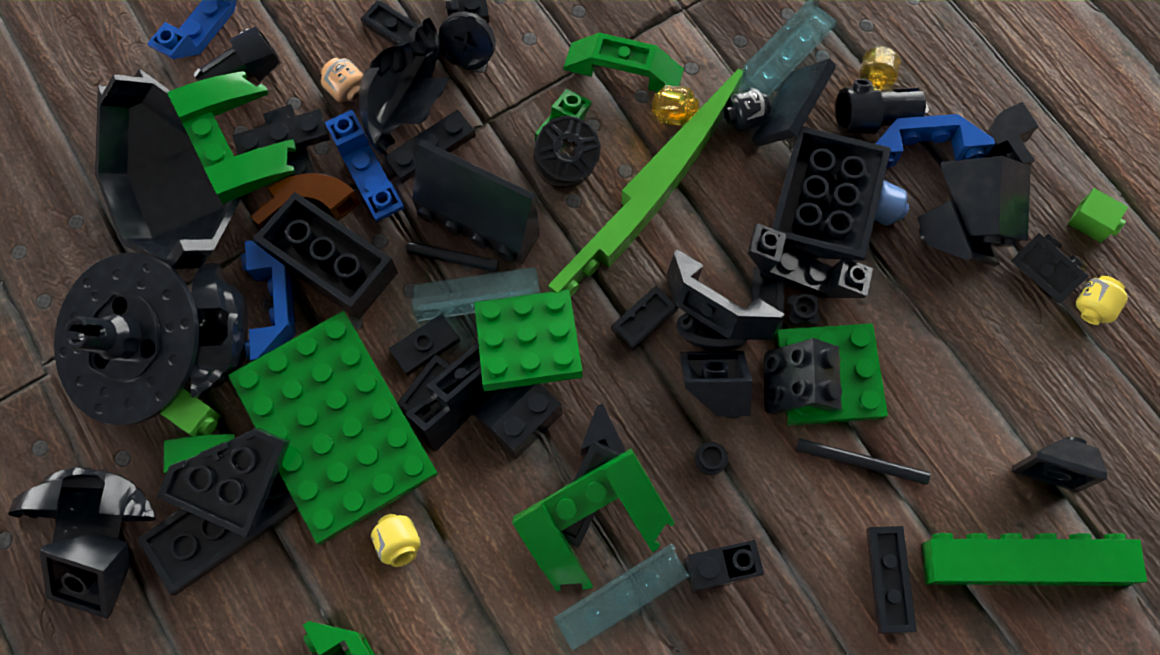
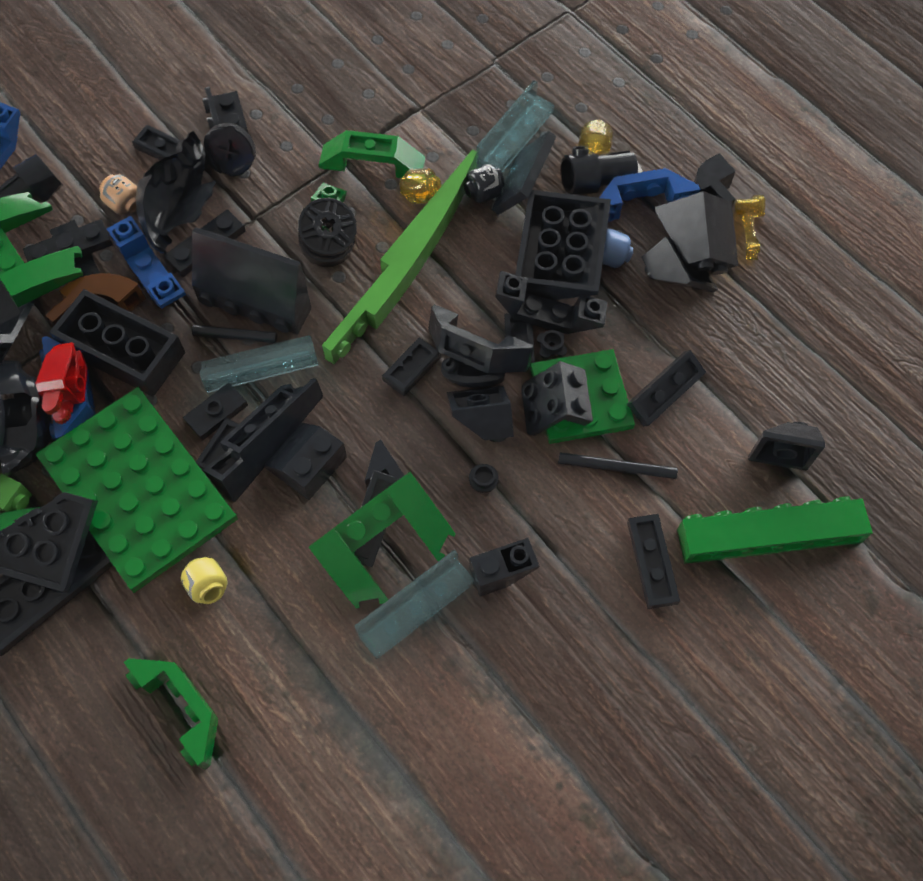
camera: 10 degrees left, 5 degrees down
(263, 298) = (62, 381): none -> red hinge
(527, 340) = (307, 393): green plate -> none
(928, 377) = (666, 388): none -> black plate
(1048, 171) = (749, 209): none -> clear yellow brick
(1050, 267) = (760, 286): black bracket -> none
(1098, 216) = (796, 240): bright green brick -> none
(1101, 300) = (807, 308): light yellow head -> none

